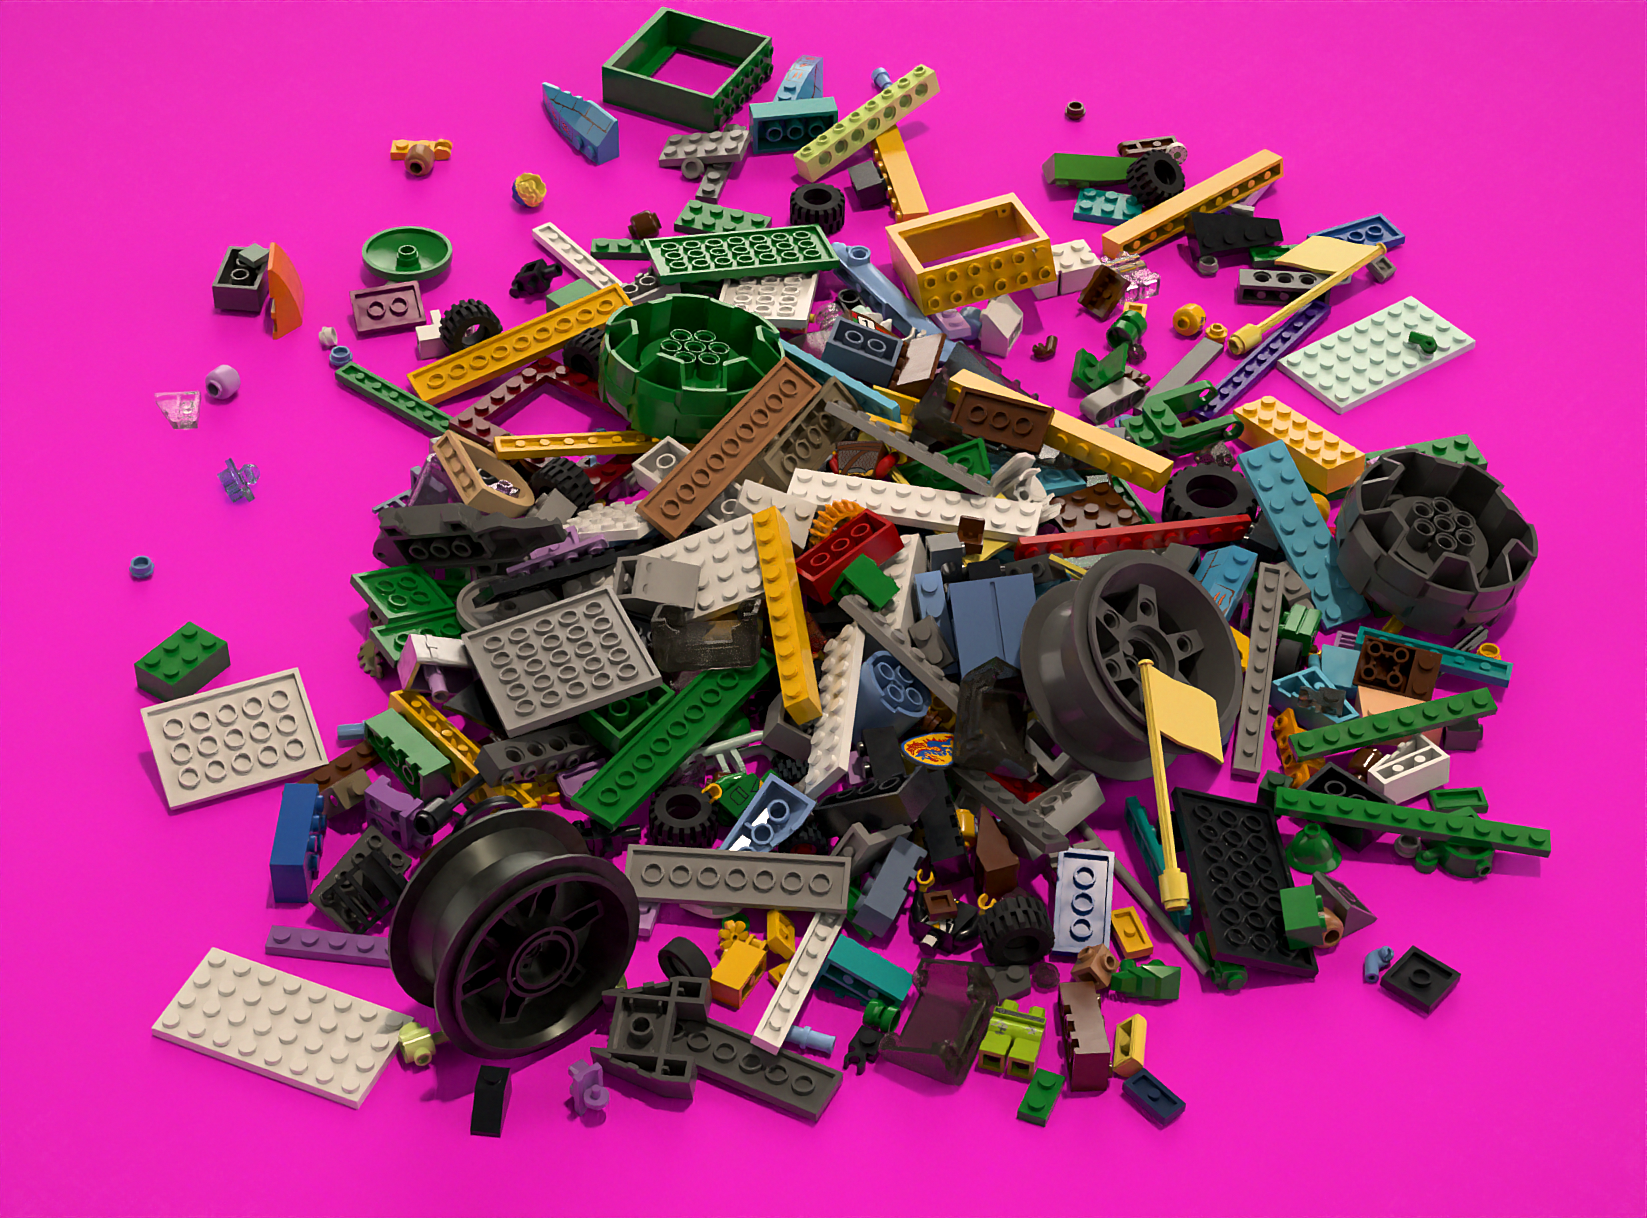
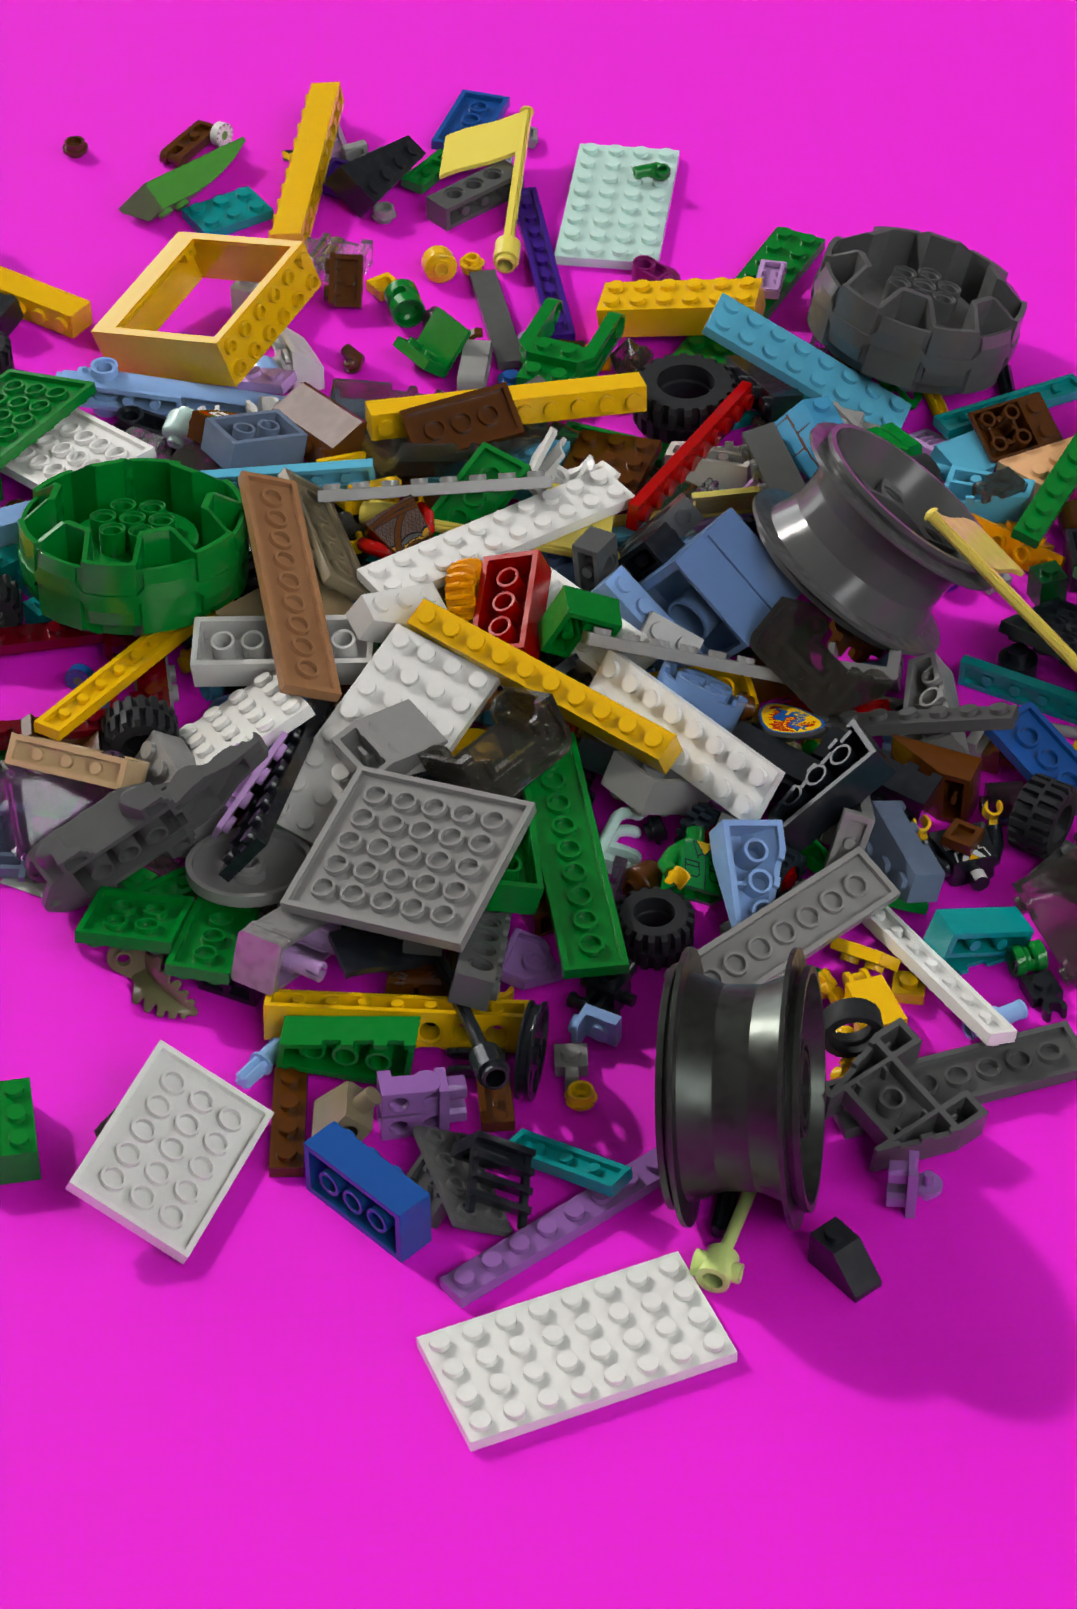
camera: 45 degrees left, 0 degrees up
(971, 533) = (580, 520): reddish brown bracket -> none
(1155, 178) = (251, 161): black tyre -> none
(1322, 412) = (649, 269): none -> magenta piece
(1489, 650) = (1031, 378): yellow plate -> none

